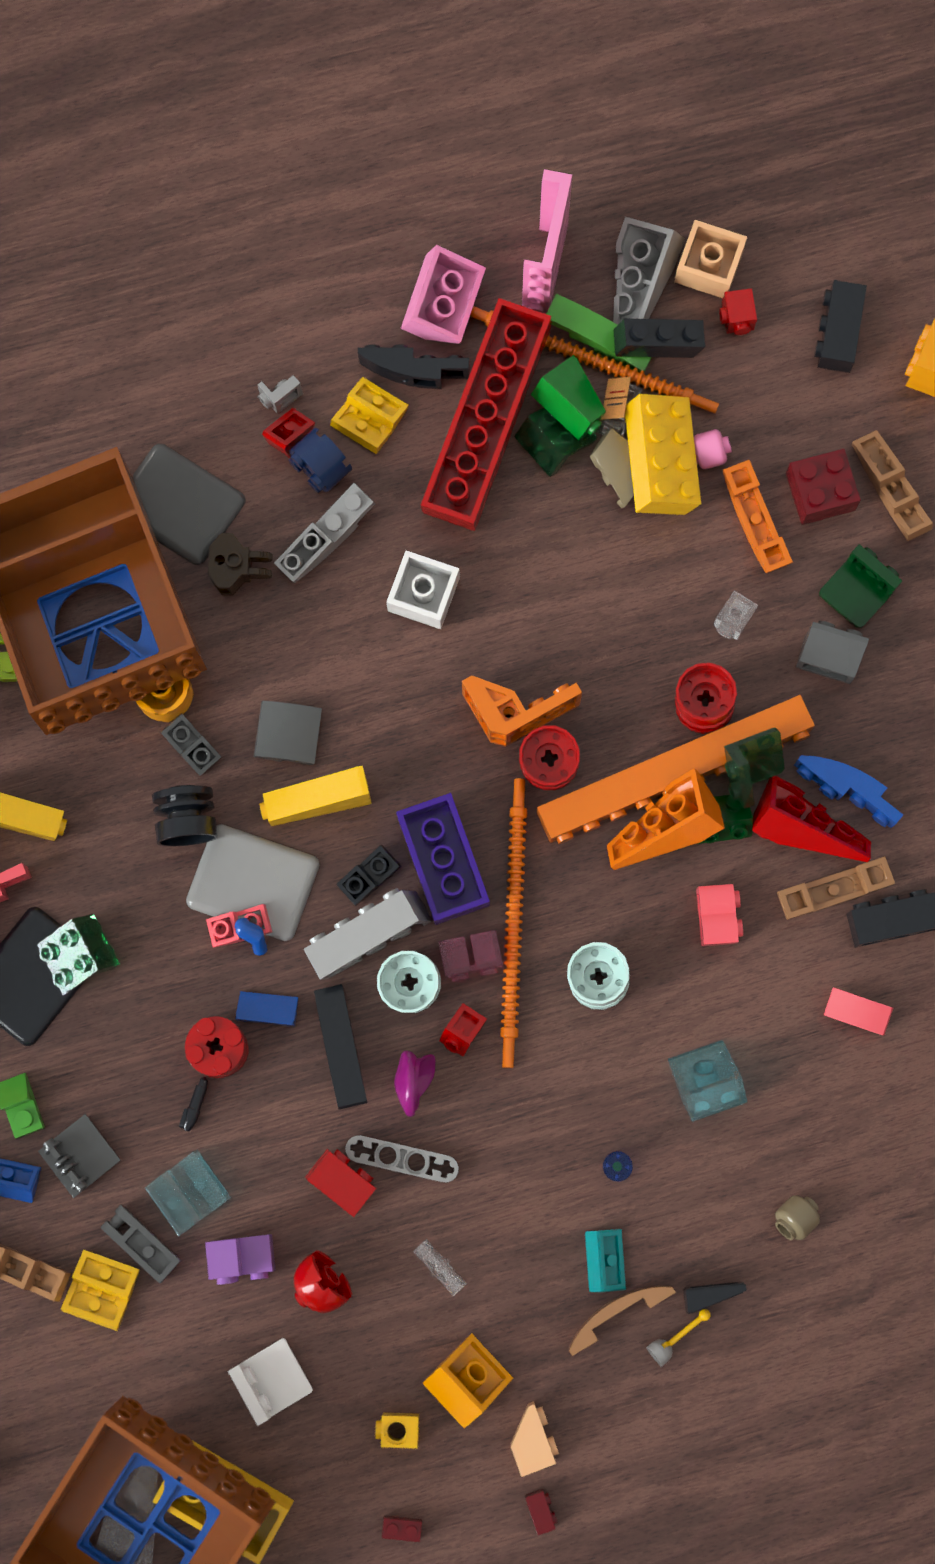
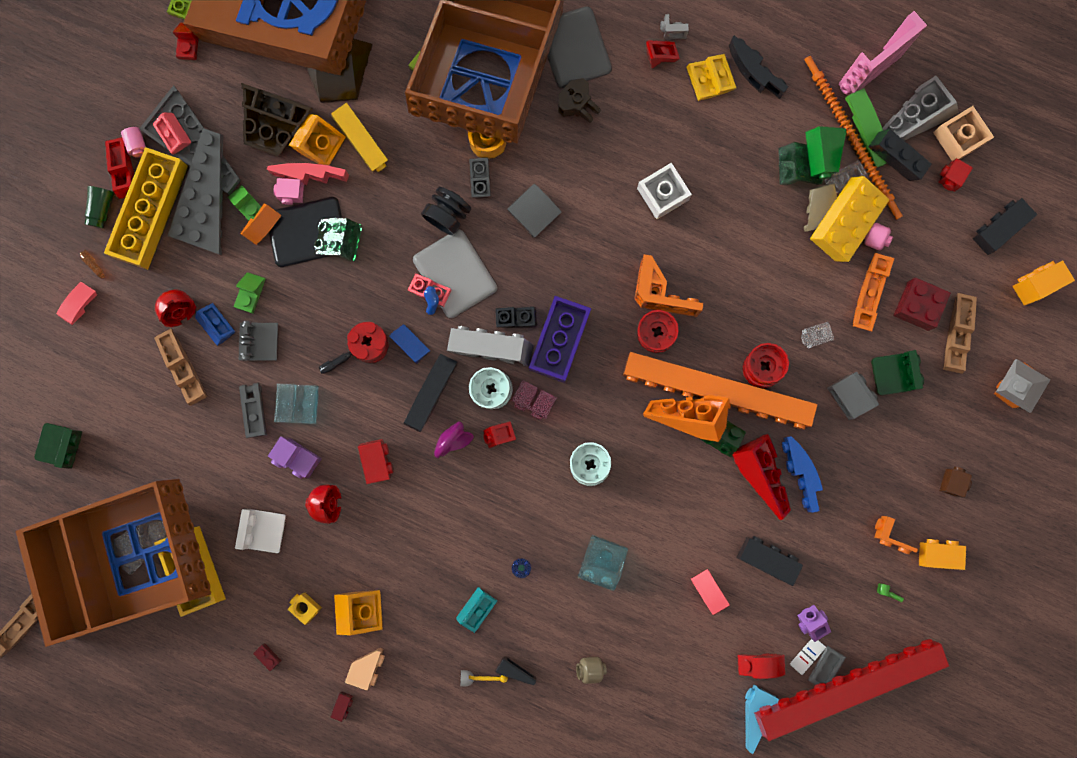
camera: 40 degrees right, 5 degrees up
(100, 1290) = (215, 416): yellow slope -> none
(317, 797) = (521, 255): yellow slope -> none
(319, 461) = (665, 80): dark blue brick -> none
(325, 535) = (637, 122): light grey slope -> none
(402, 1157) = (418, 472): light grey beam -> none
(439, 1267) = (390, 544): clear pin -> none
(443, 296) = (802, 43): bright pink slope -> none
(486, 414) = (774, 123): red brick -> none
(518, 814) = (618, 347): orange hose -> none
(585, 1336) = (434, 640): medium nougat slope -> none
(616, 397) = (848, 170): clear orange sticker -> none
(718, 915) = (678, 483): coral brick -> none
(751, 762) = (763, 419): clear green bracket -> none
(836, 888) = (751, 519): medium nougat slope -> none

